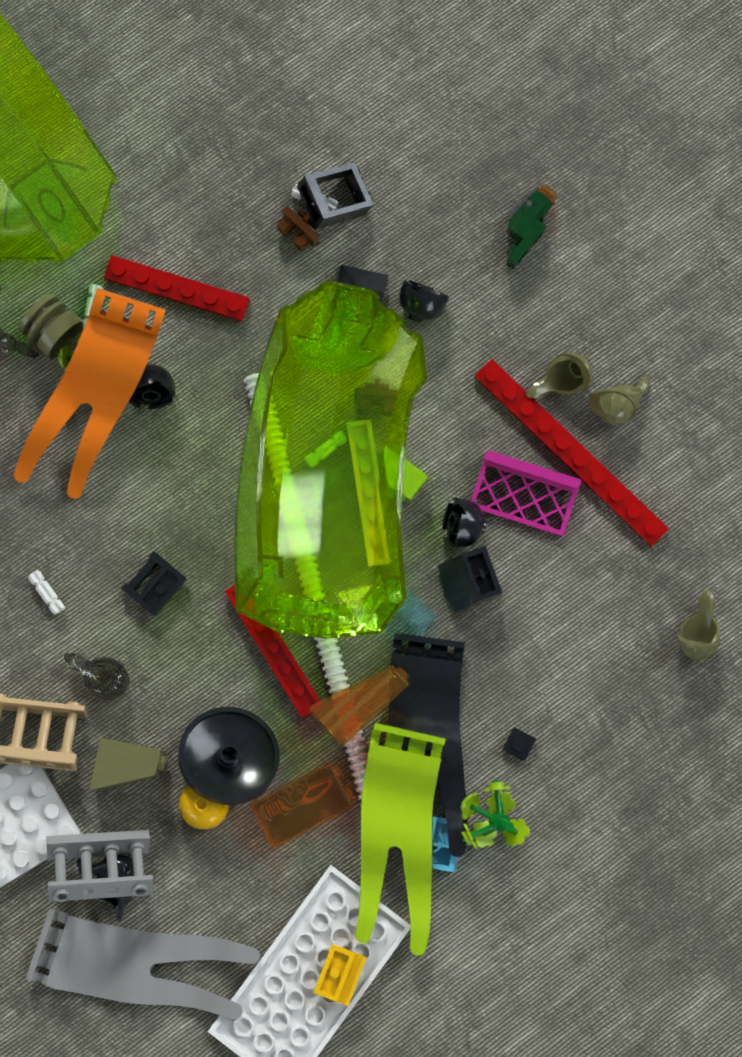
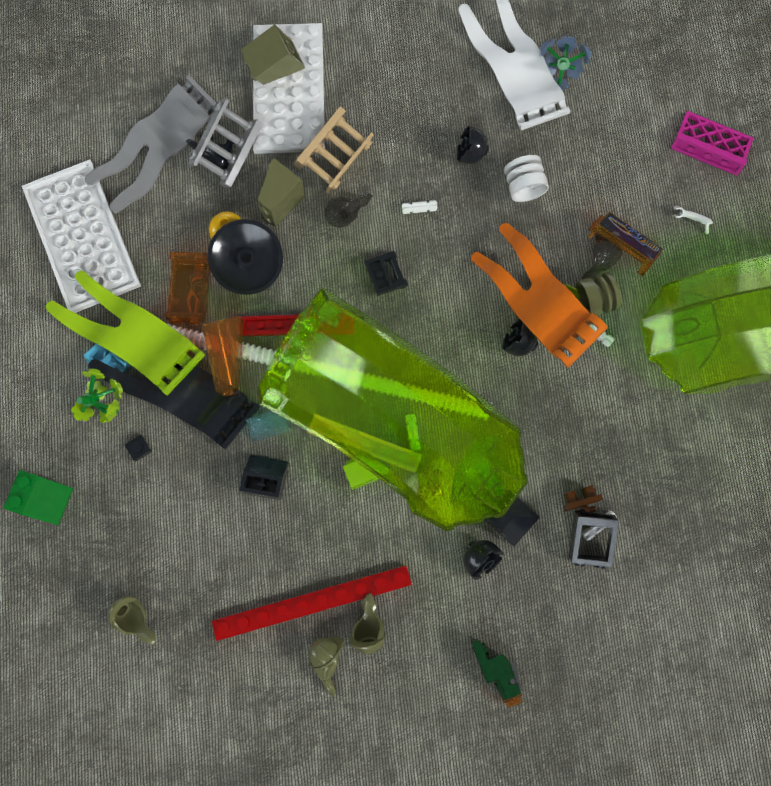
camera: 120 degrees right, 5 degrees down
(176, 288) = (581, 395): red plate -> none
(340, 974) = (67, 250): yellow plate -> none
(463, 523) = (304, 495): black cylinder -> none
(532, 472) = (310, 567): dark pink fence -> none
(637, 809) = (38, 498): none -> green slope

